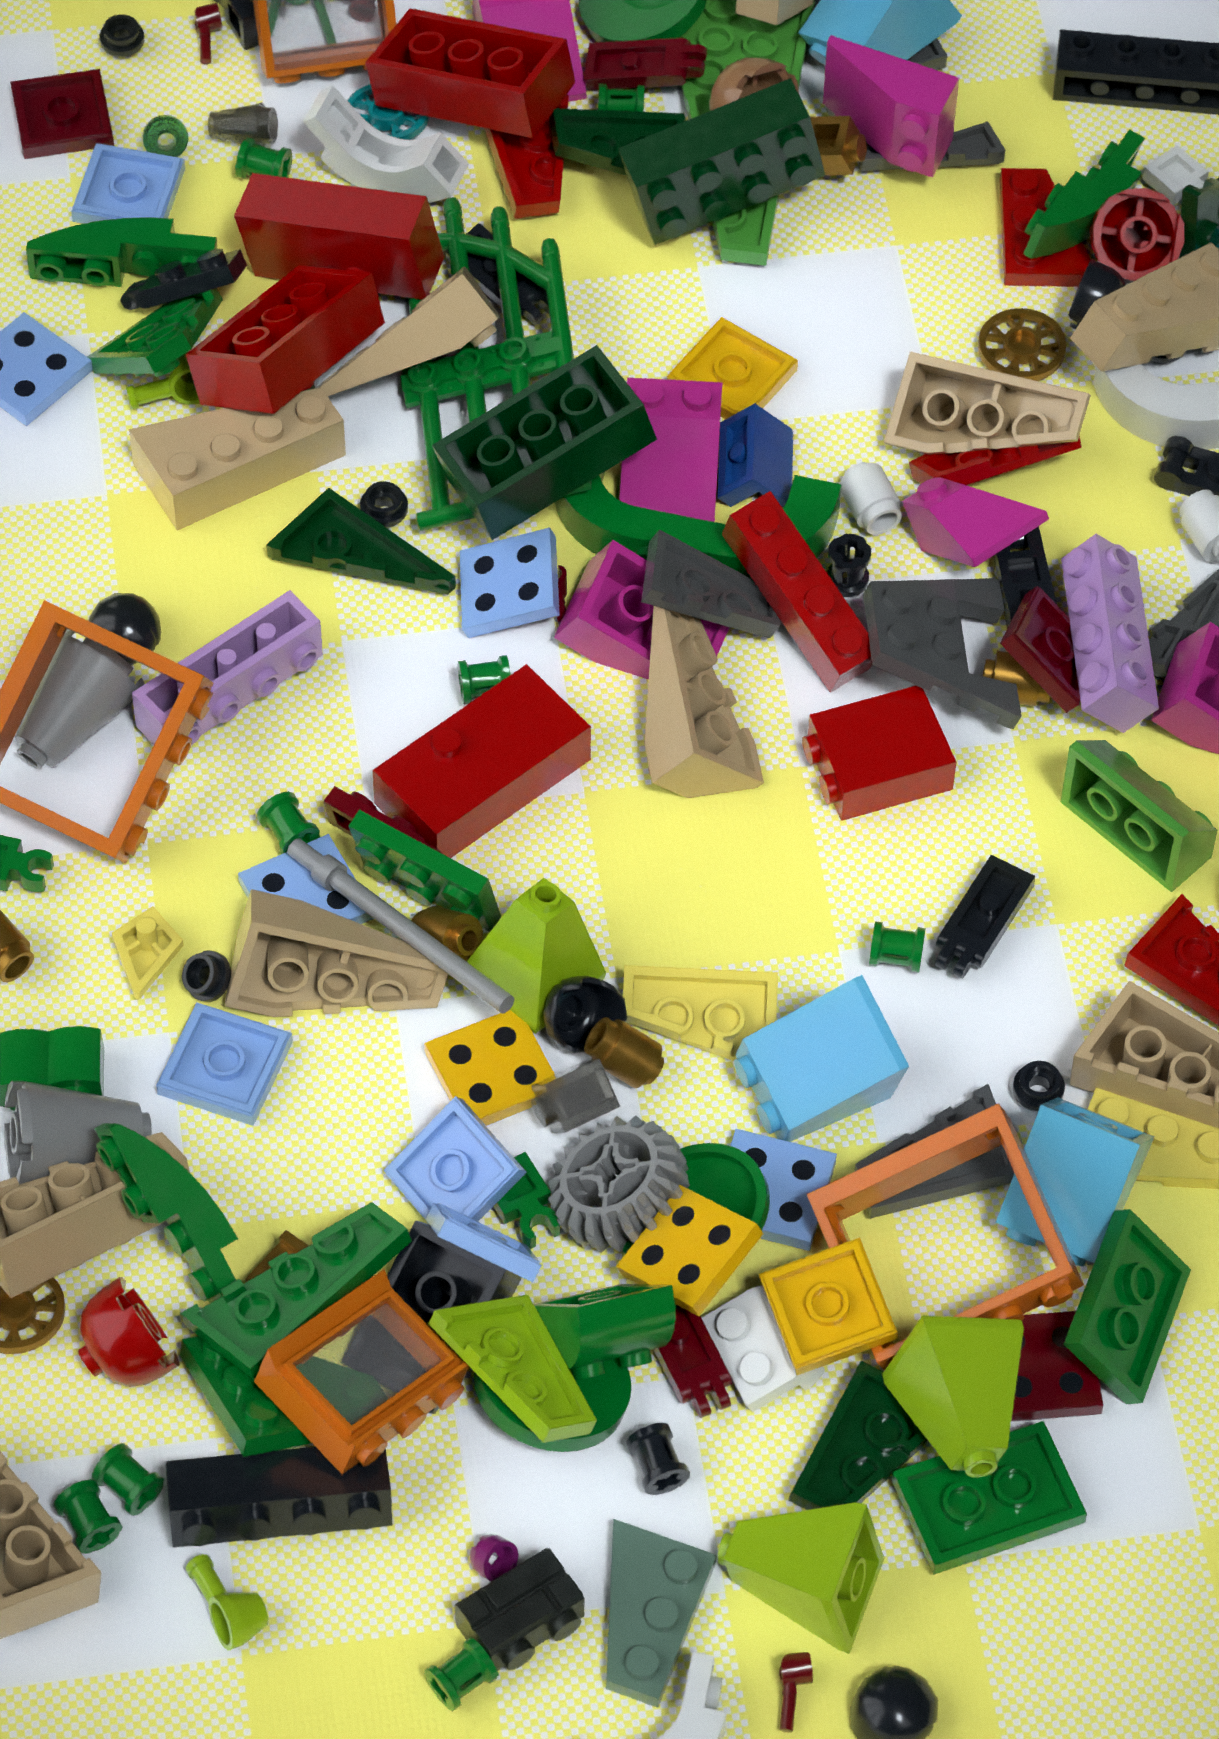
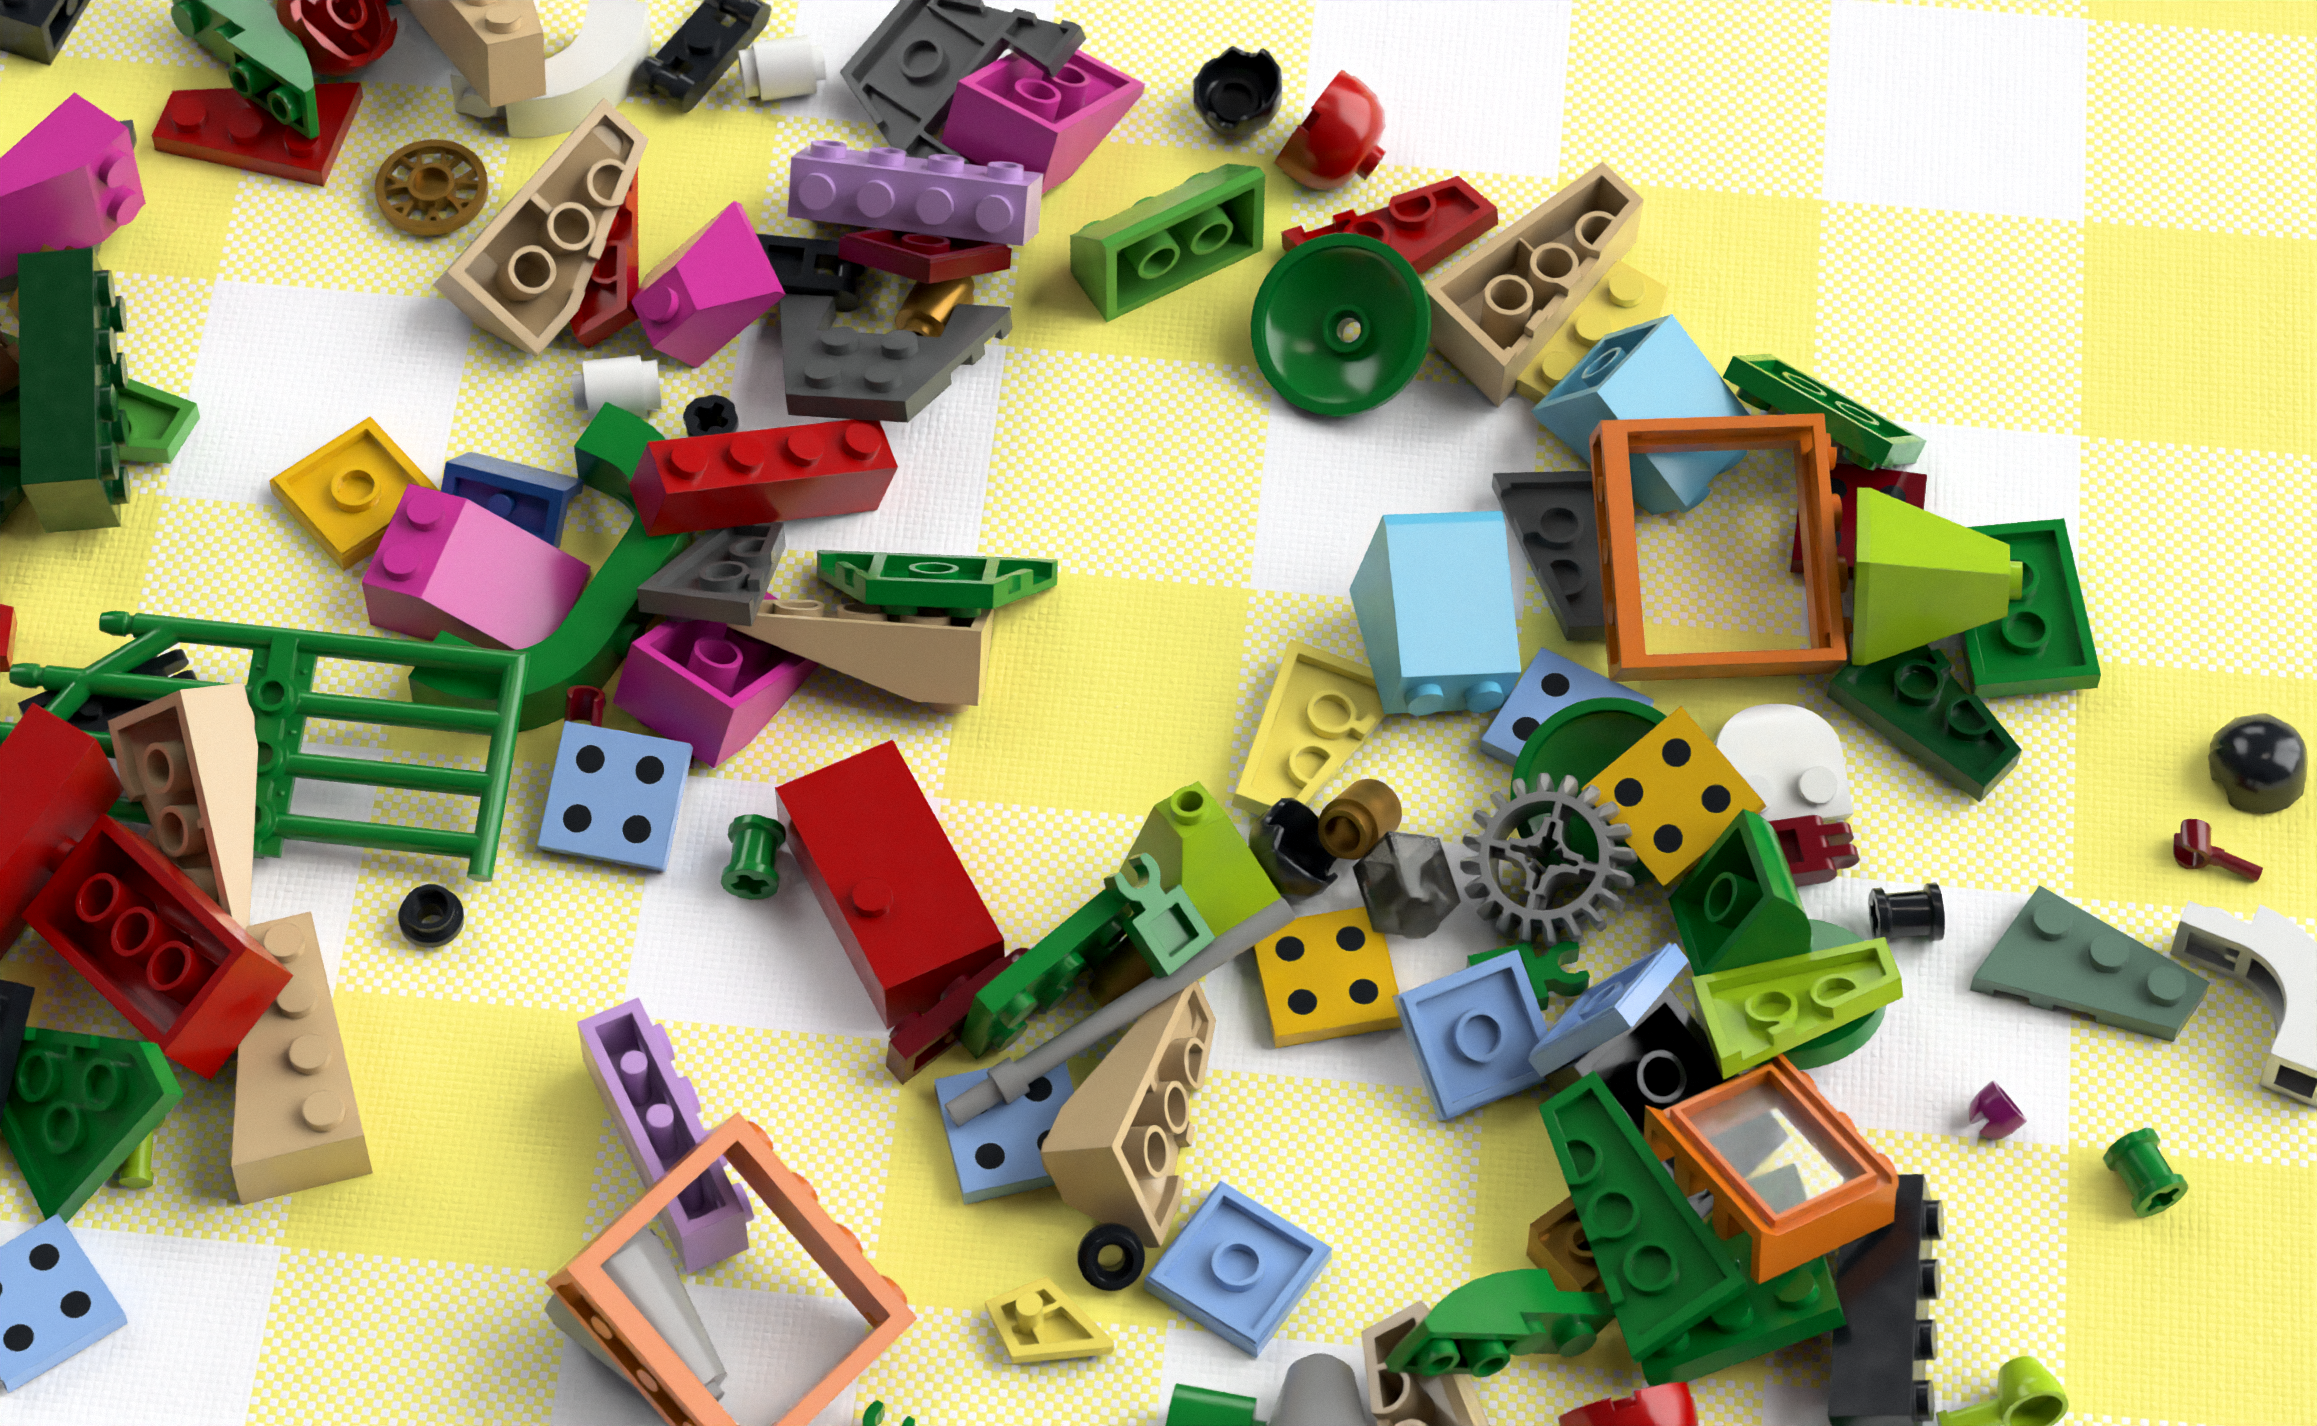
camera: 75 degrees left, 0 degrees up
(129, 618) = (521, 1254): black hair -> none
(286, 821) = (908, 1120): green bush -> none
(348, 541) = (478, 968): dark green wing -> none
(456, 917) = (1164, 922): none -> plate
(522, 1610) = (2077, 1090): pearl dark grey brick -> none
(545, 442) = (472, 670): dark green brick -> none
(572, 540) = (585, 703): none -> dark red hand
(757, 733) = (935, 580): none -> green wing
(809, 1567) = (2089, 789): lime slope -> none
(828, 1306) = (1772, 682): yellow tile -> none
(879, 752) = (999, 468): red brick -> none
(897, 946) = (1277, 519): green bush -> none
(983, 915) = (1257, 427): black hinge -> none
(1041, 1074) = (1498, 419): black plate -> none
(1087, 942) = (1311, 301): none -> green dish
(1095, 283) = (411, 84): black hair -> none

